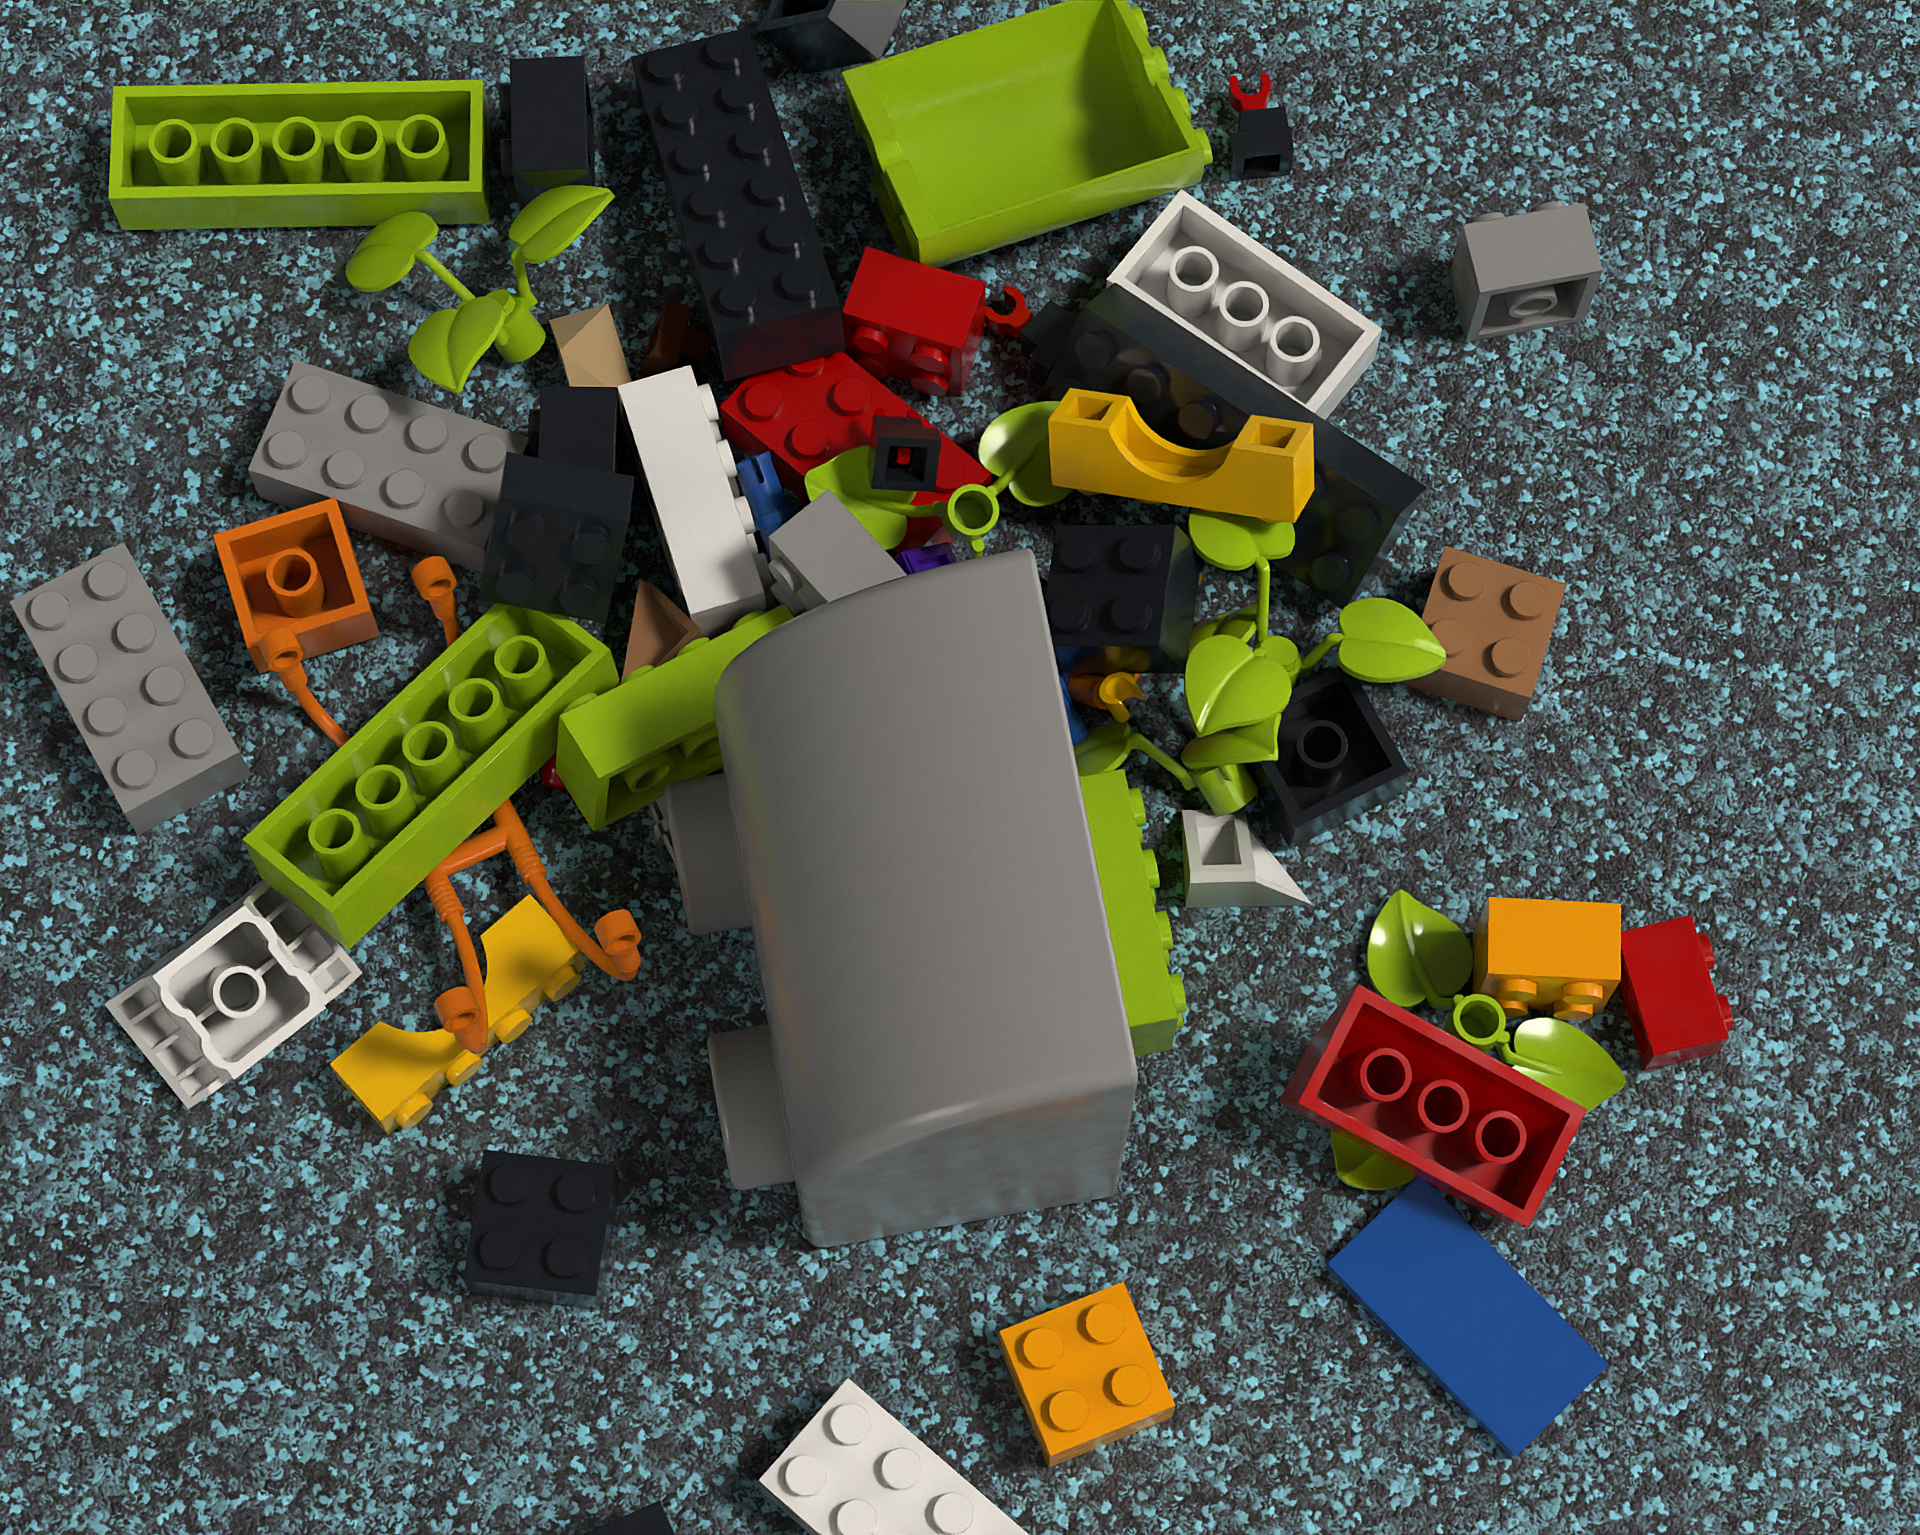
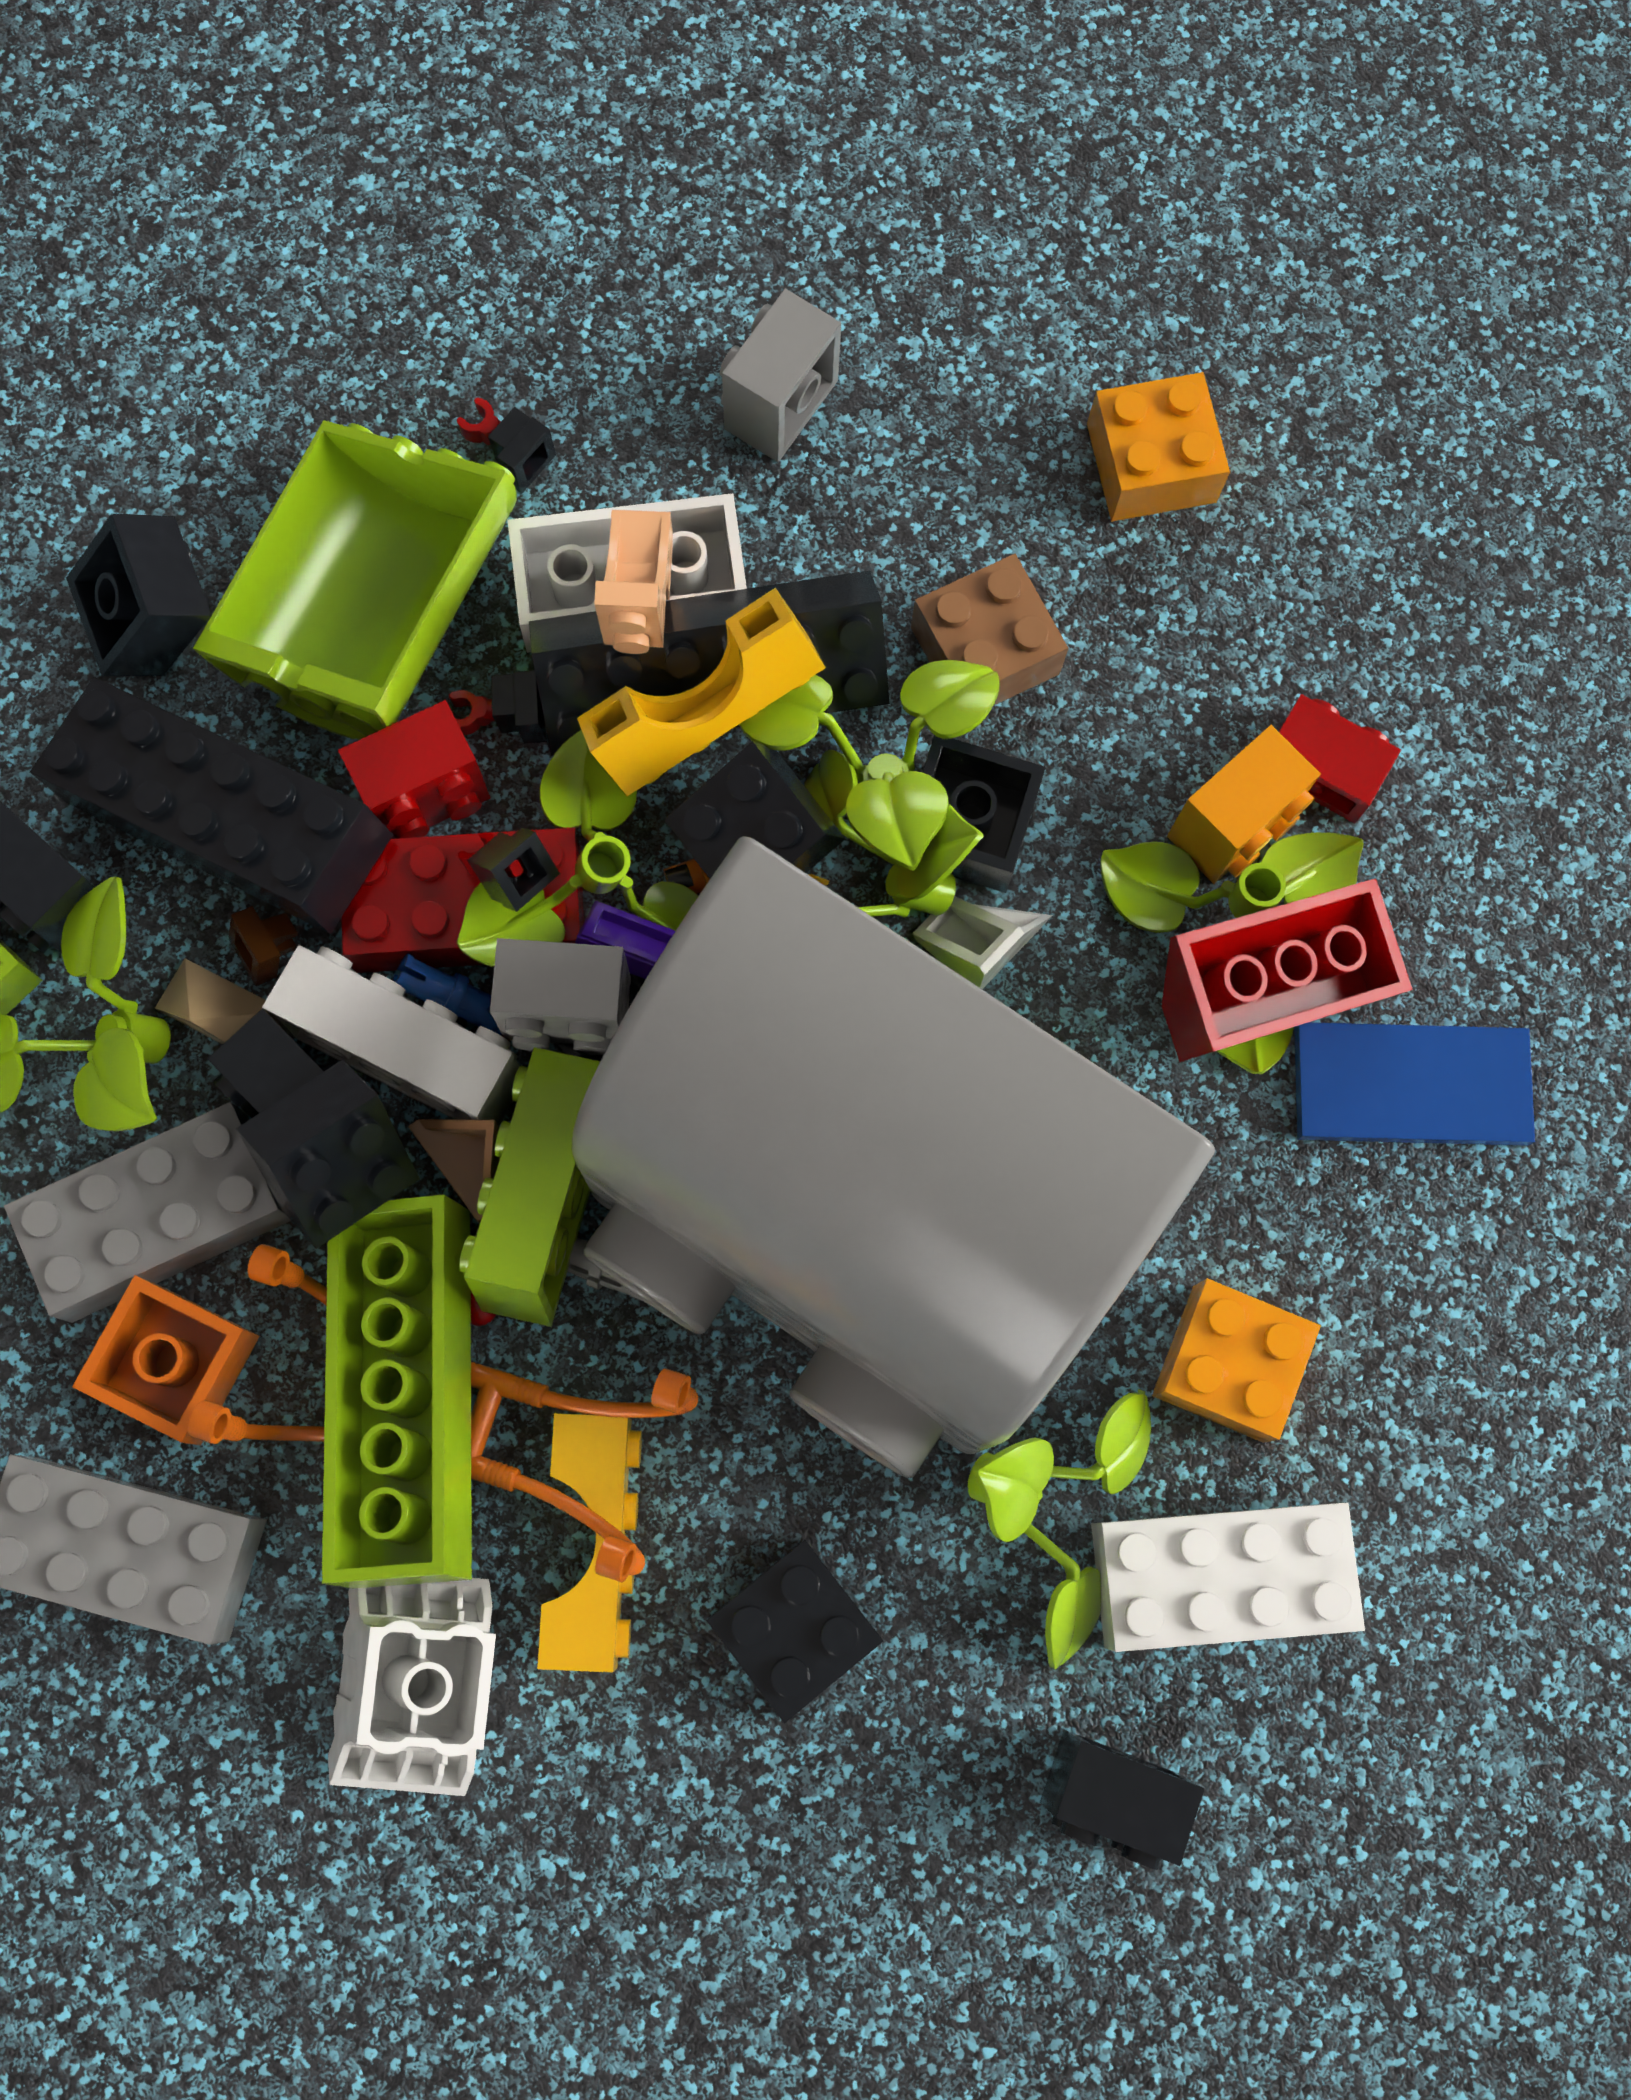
camera: 50 degrees left, 5 degrees up
(807, 1276) = (1013, 1486): none -> lime plant
(1230, 318) = (635, 581): none -> light nougat arch
(1789, 611) = (1157, 446): none -> light orange brick

